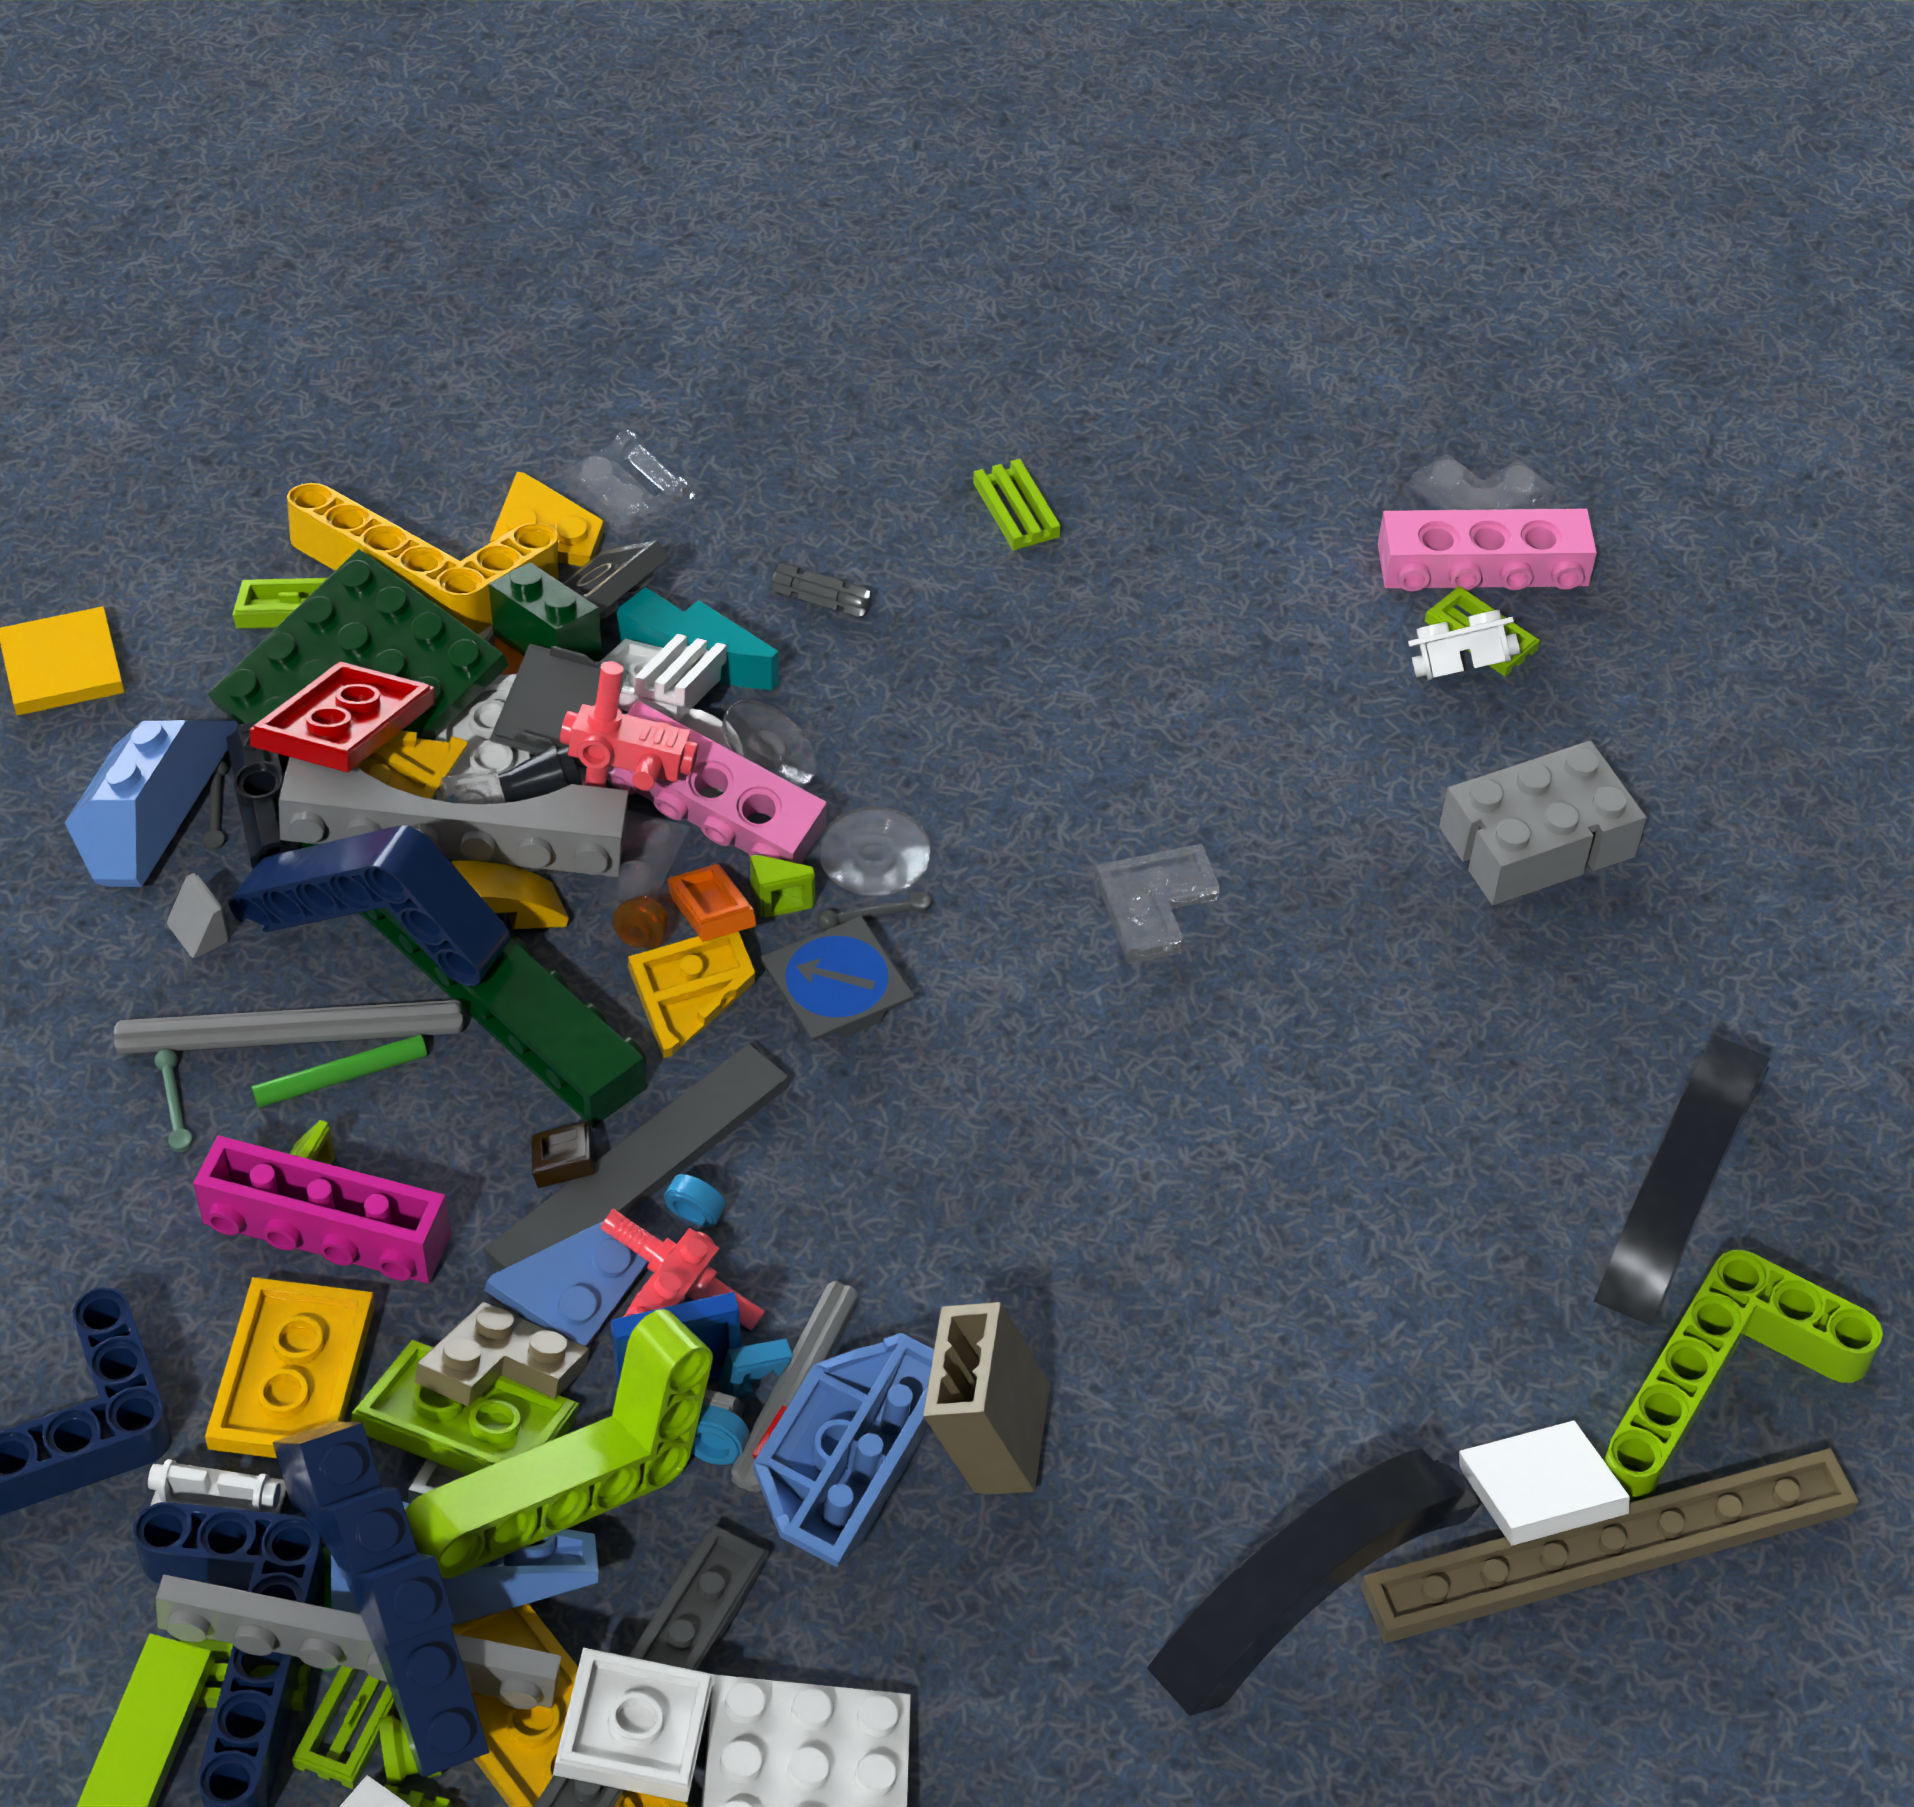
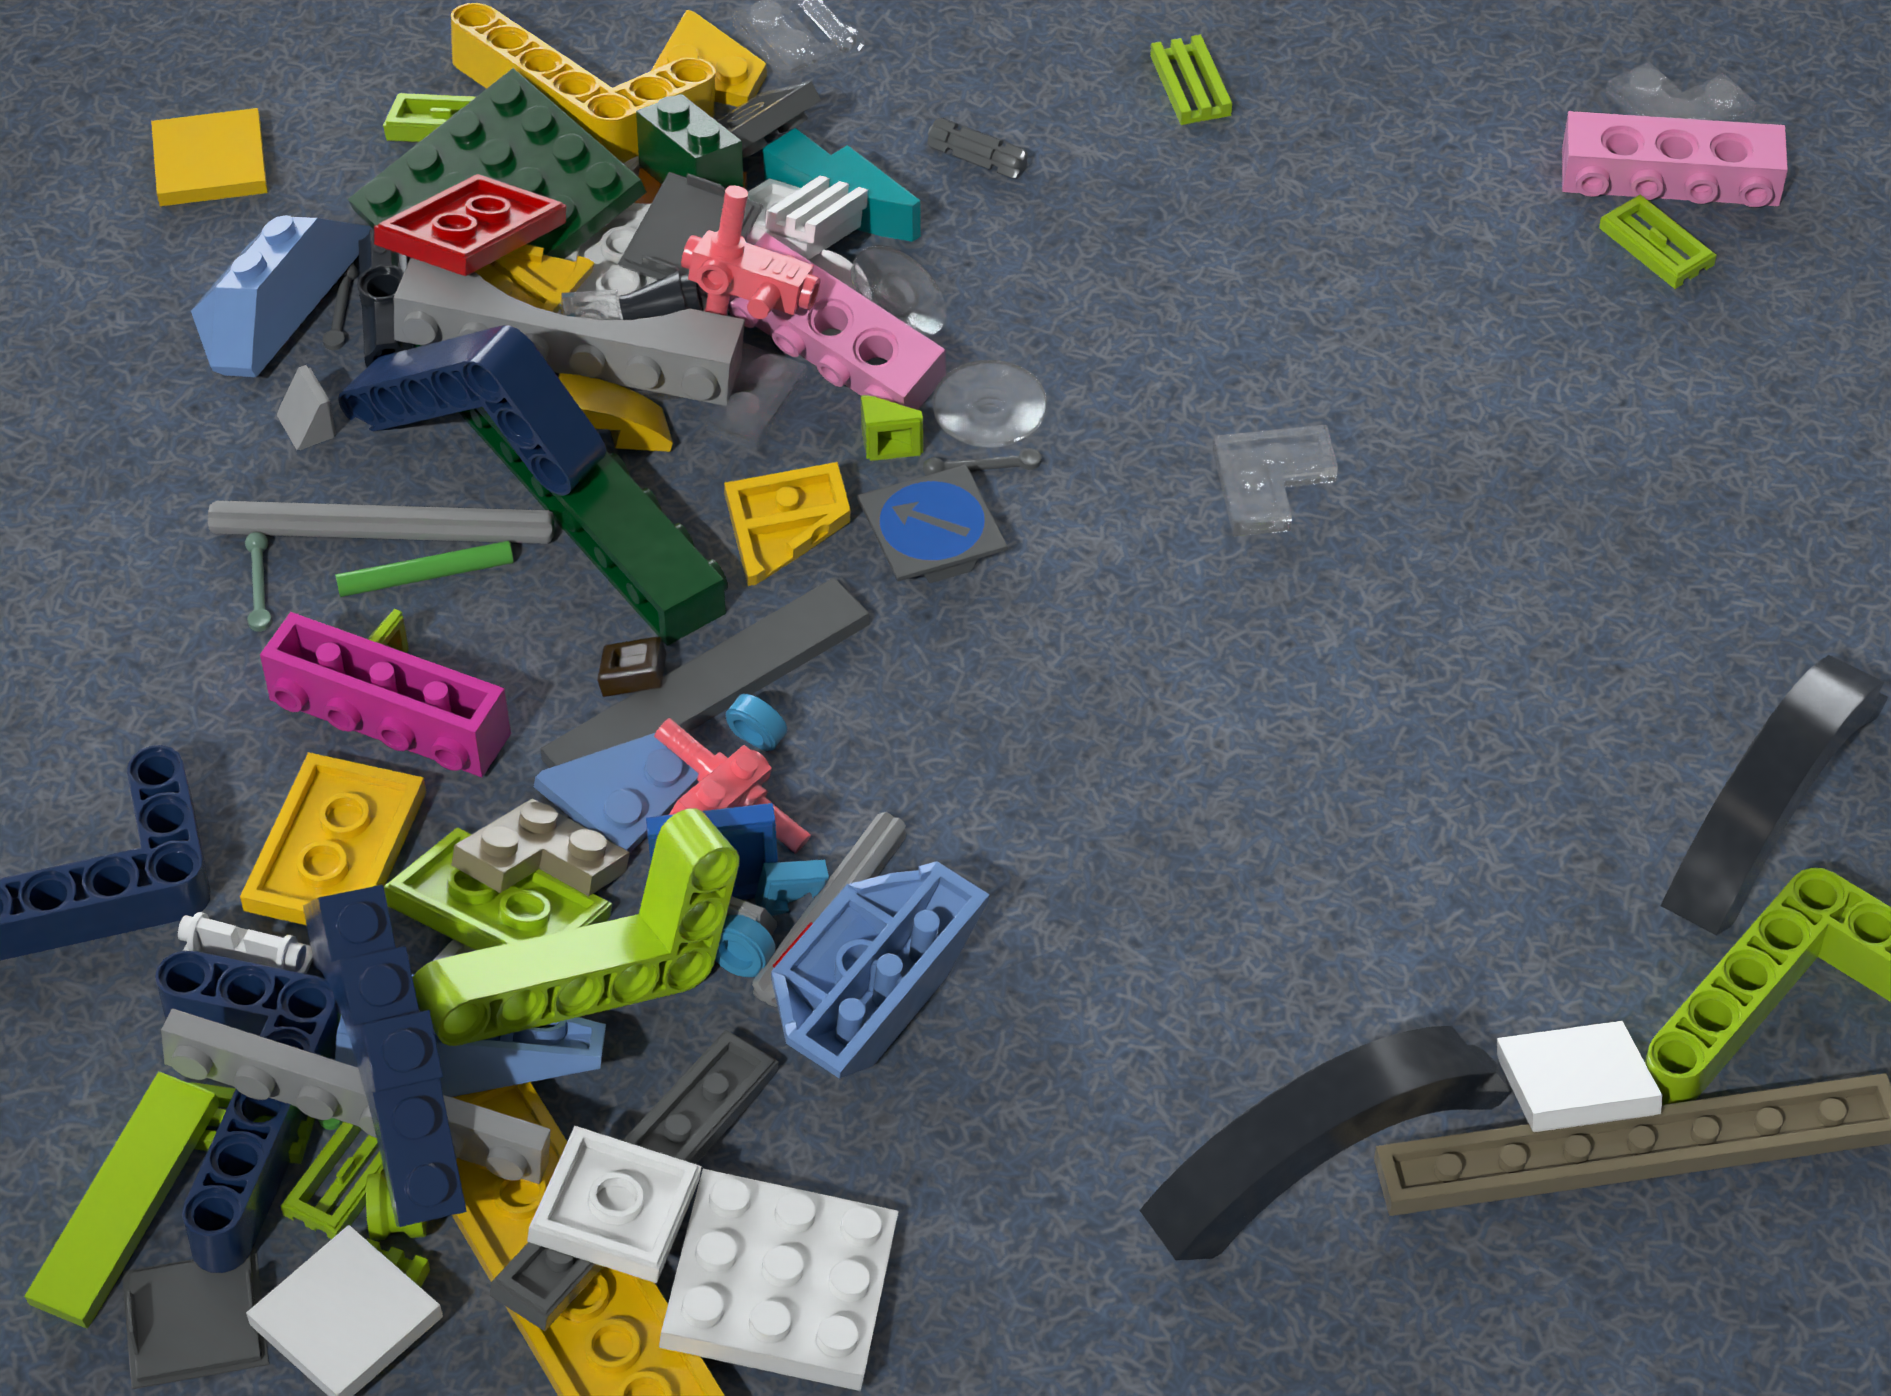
camera: 10 degrees right, 0 degrees up
(641, 922) = (743, 452): clear orange plate -> none
(711, 902) = (816, 438): orange tile -> none
(987, 1398) = (1015, 933): dark tan brick -> none
(1484, 639) = (1654, 245): white hinge -> none
(1541, 822) = (1678, 430): light grey piece -> none

